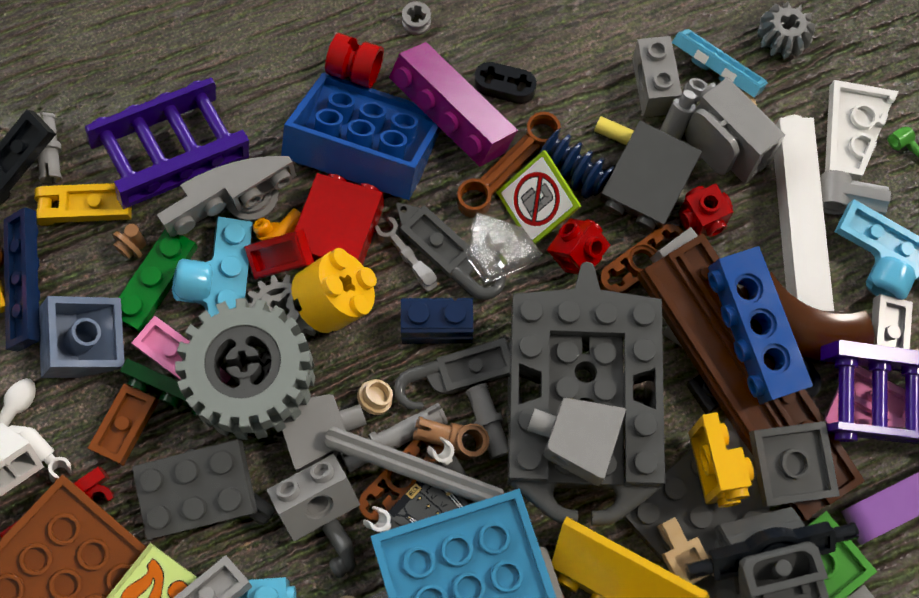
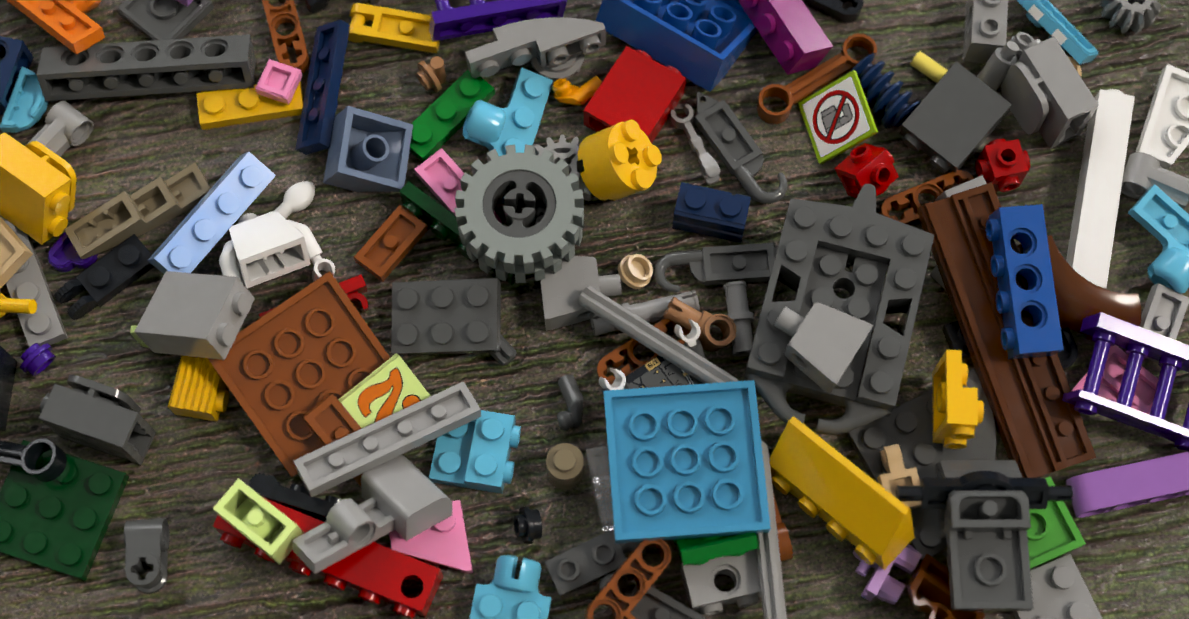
camera: 15 degrees right, 0 degrees up
(279, 254) = (572, 115): red tile -> none
(313, 497) = (556, 348): light grey brick -> none
(499, 248) = (788, 156): clear plate -> none
(794, 463) = (1028, 422): dark grey plate -> none

